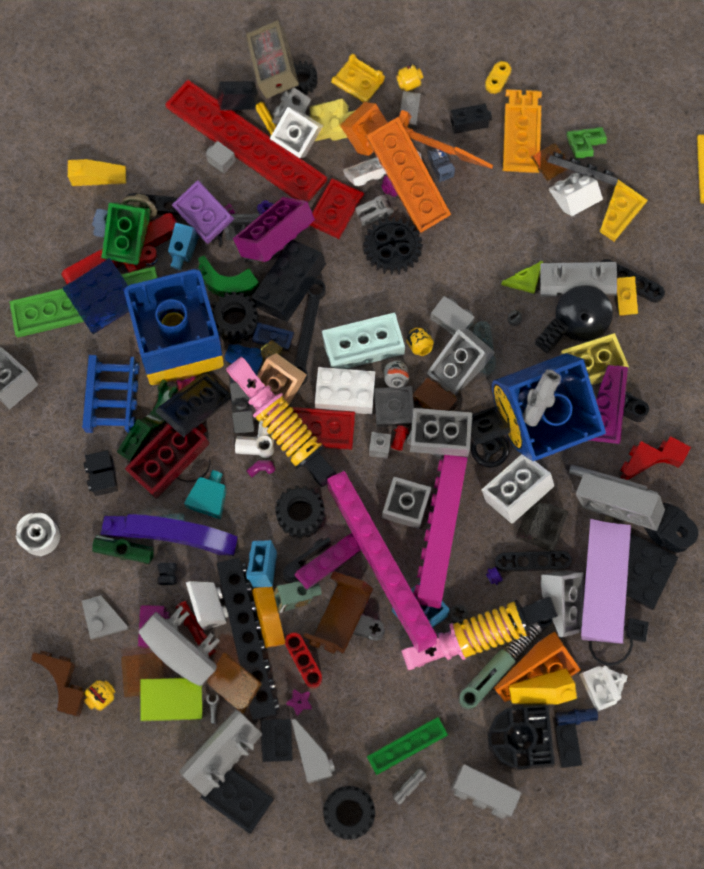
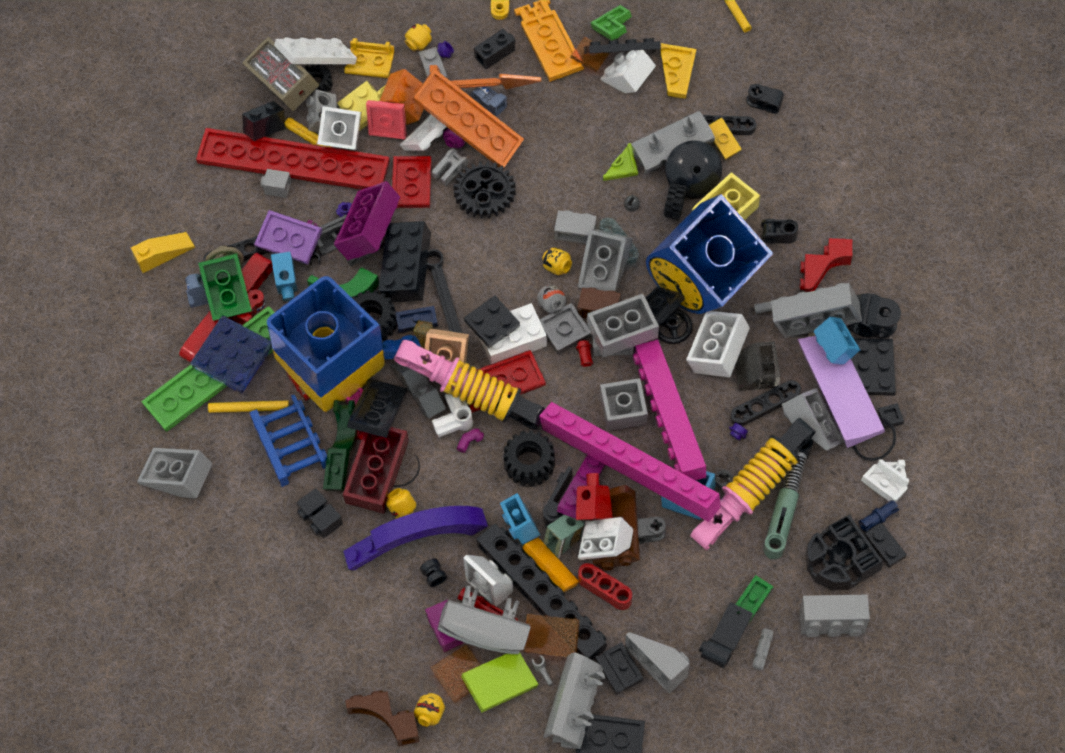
camera: 25 degrees left, 10 degrees down
(34, 544) = (279, 595): white brick -> none
(94, 347) = (247, 406): none -> yellow piece
(101, 618) = (392, 642): light grey wing -> none
(111, 547) = (365, 574): dark green piece -> none
(171, 498) = (400, 502): none -> yellow head
(207, 496) = (434, 486): teal torso -> none
(294, 702) = (616, 629): magenta plate -> none
(311, 52) = (315, 51): none -> white plate
(322, 621) = (605, 538): none -> white slope
(329, 582) = (593, 500): none -> red torso
(330, 373) = (491, 321): none -> black plate
(330, 812) = (715, 711): black tyre -> none
(340, 142) = (386, 119): none -> coral tile
(366, 331) = (508, 279): light aqua brick -> none
(379, 445) = (570, 367): light grey brick -> none
(381, 761) = (726, 636): none -> black door
(427, 99) = (445, 49): none -> dark purple plate
(541, 397) = (702, 242): light grey piece -> none
(544, 658) = (824, 485): orange wedge -> none
(545, 689) = (839, 503): yellow slope -> none
(611, 403) = (757, 218): magenta wing -> none
(622, 539) = (836, 340): none -> dark azure brick
(686, 276) = (766, 98): none -> black piece

